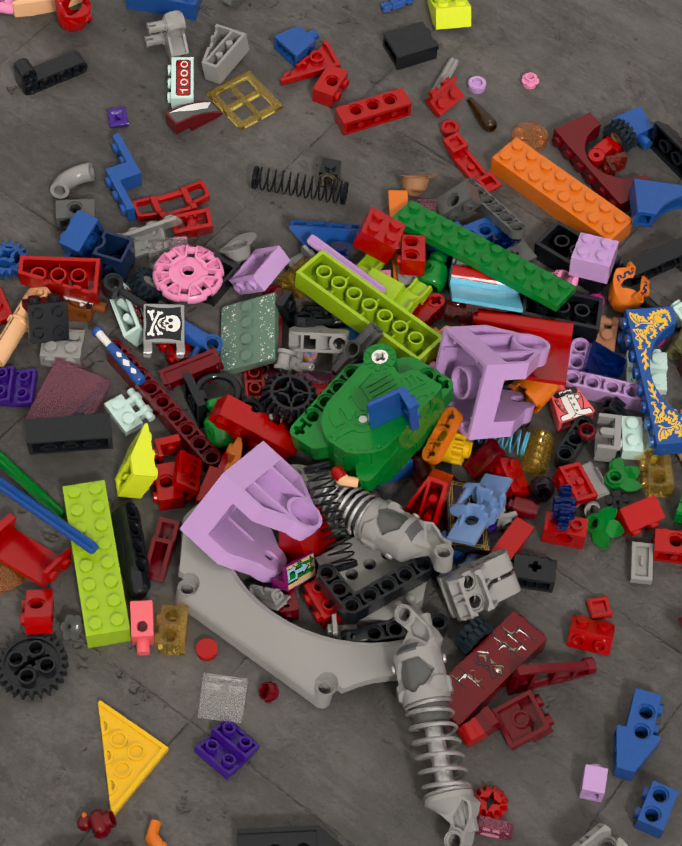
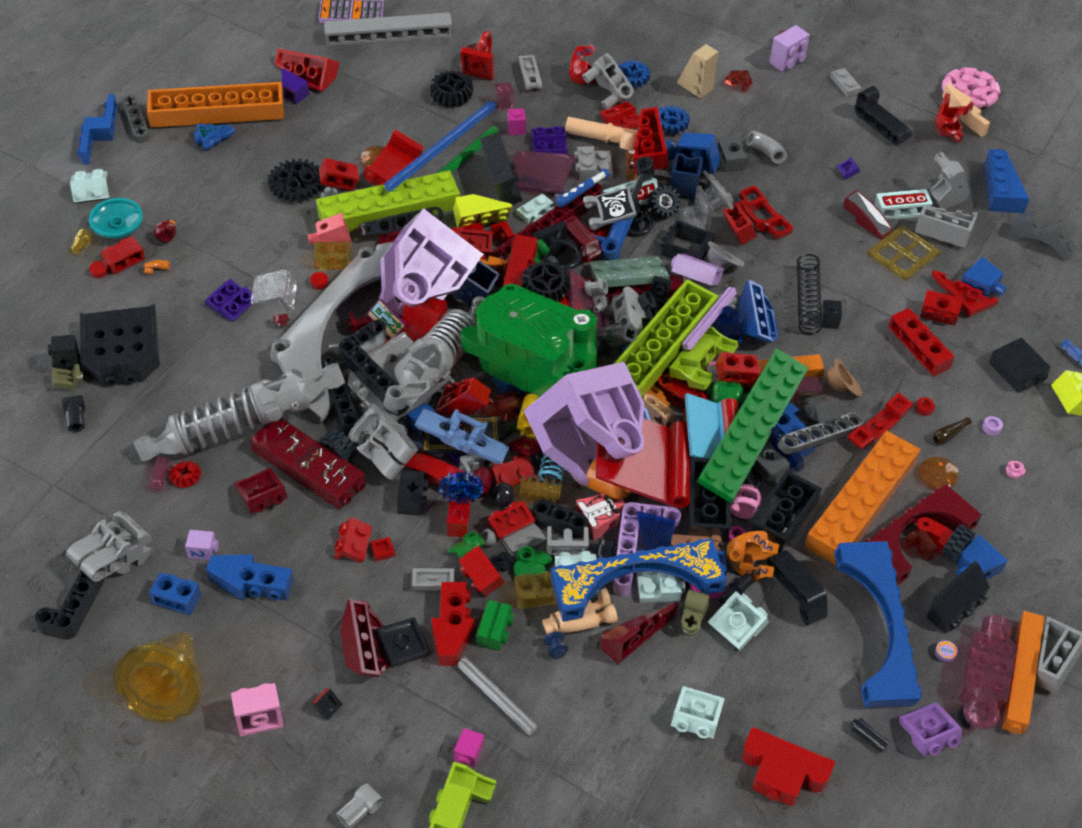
camera: 85 degrees right, 5 degrees down
(47, 318) = (606, 136): black bracket -> none
(123, 177) = (782, 177): blue bracket -> none
(128, 755) = (225, 245): yellow tile -> none
(188, 283) = (663, 217): bright pink plate -> none
(270, 597) = (363, 306): light grey hinge -> none
(312, 469) = (395, 350): black piece -> none
(342, 477) = (465, 318): arm -> none
(379, 235) = (750, 336): red brick -> none
(393, 405) = (513, 321): blue bracket -> none
(439, 428) = (523, 396): orange beam -> none
(445, 97) = (960, 395): red bracket -> none
(447, 72) = (989, 397): light grey axle -> none
(479, 727) = (250, 457): leg -> none
(525, 674) = (298, 487): dark red plate -> none
(584, 436) = (566, 525): dark red piece -> none
(593, 258) = (768, 507): lavender brick -> none

